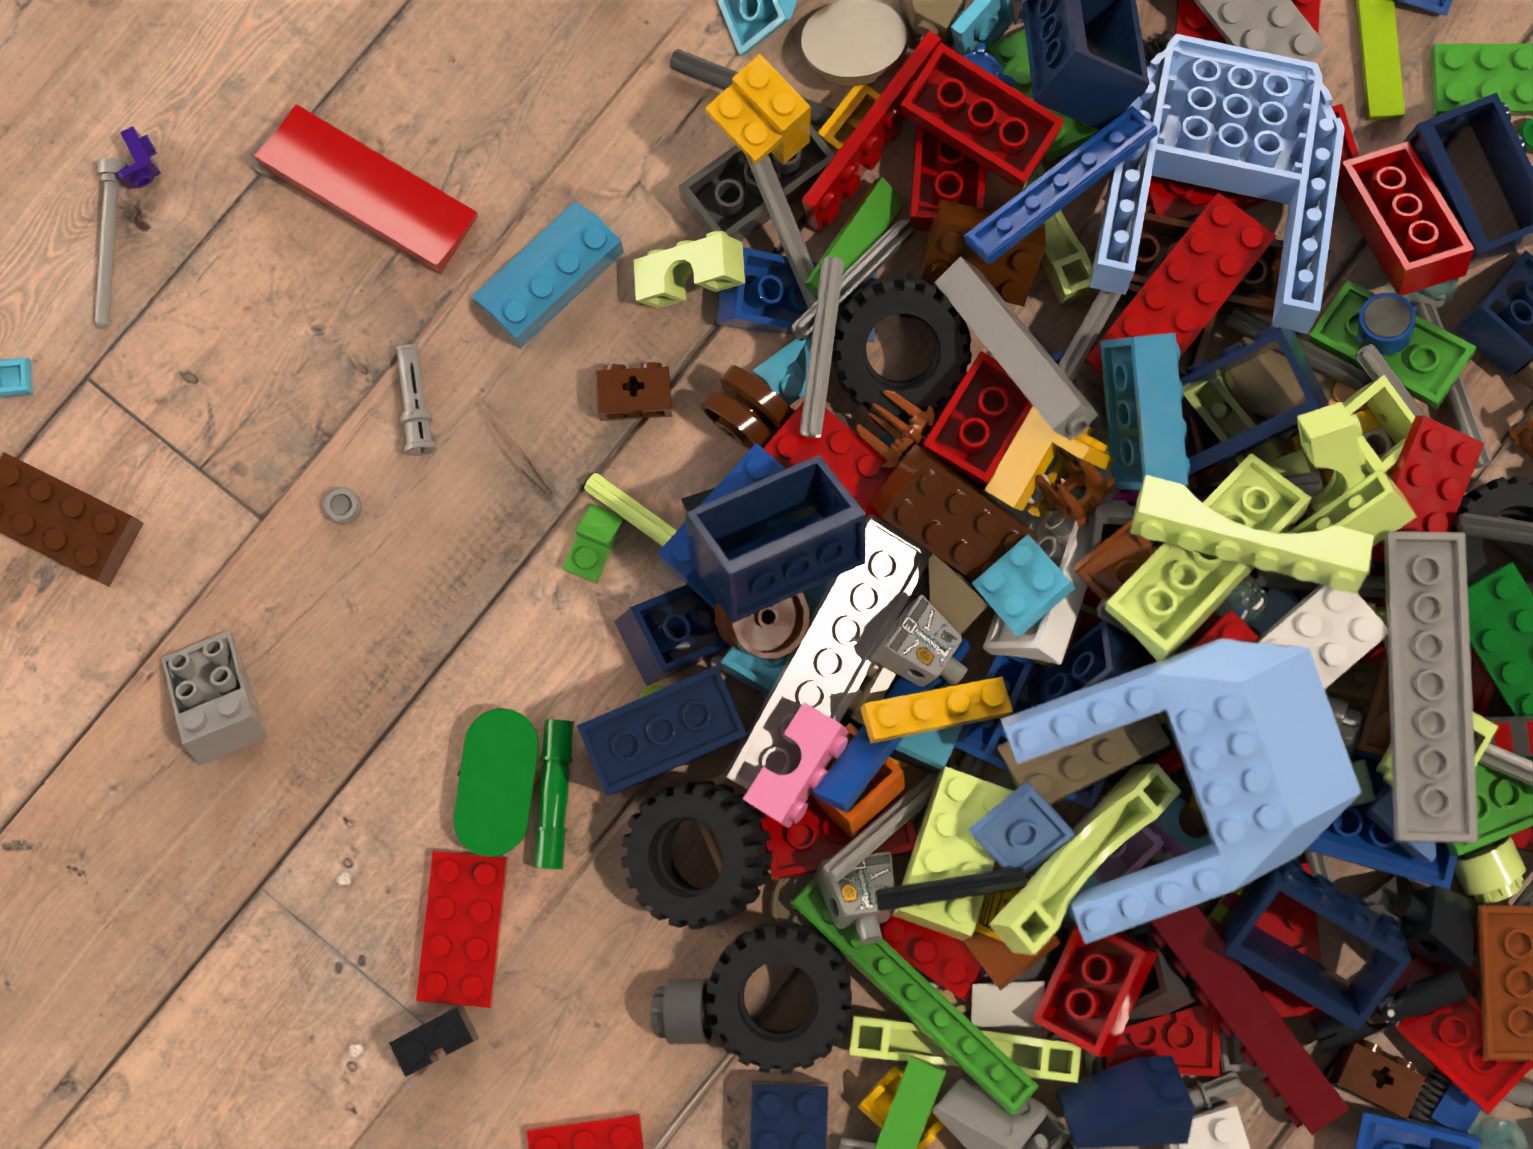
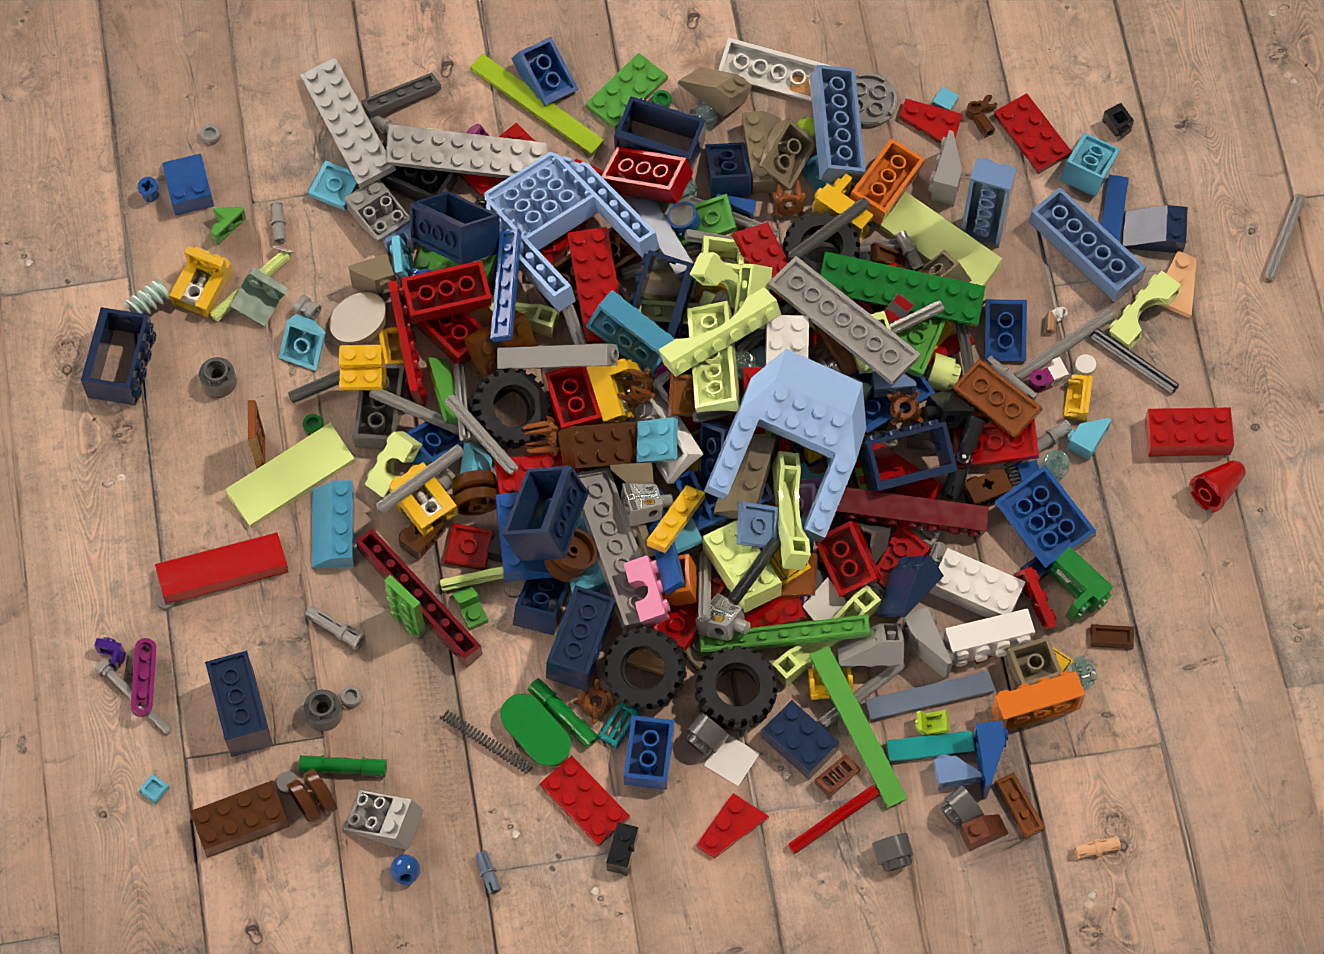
camera: 50 degrees left, 15 degrees down
(135, 230) = (143, 677): none -> magenta plate
(154, 584) = (315, 794): none -> reddish brown wheel
(160, 532) = (283, 779): none -> light grey tile
(166, 787) = (405, 869): none -> blue piece
(192, 380) = (238, 703): none -> dark blue hose
(239, 581) = (343, 765): none -> green piece
(257, 893) = (488, 872): none -> sand blue axle
(275, 475) = (327, 720): none -> dark grey piece
(434, 783) = (492, 749): none -> dark grey piece
(497, 468) = (404, 607): none -> bright green plate
(541, 470) = (434, 613): none -> dark red brick
(561, 66) = (256, 434): none -> dark orange tile
(567, 156) = (290, 475): none -> yellowish green arch
(571, 885) = (609, 740): none -> teal tile
(592, 959) = (649, 752): none -> blue brick
(595, 807) = (593, 711): none -> dark orange piece
(663, 120) = (312, 423): none -> green tile
(674, 466) = (468, 546): none -> red tile
(678, 325) = (418, 513): none -> yellow brick
(687, 1072) = (732, 760): none -> white sticker
(688, 326) = (420, 479): none -> light grey axle
(735, 352) = (445, 478): none -> light grey wheel
(1339, 313) = (667, 239): none -> tile
(1386, 889) = (897, 414): none -> dark orange piece
(1480, 381) = (742, 206): none -> blue slope

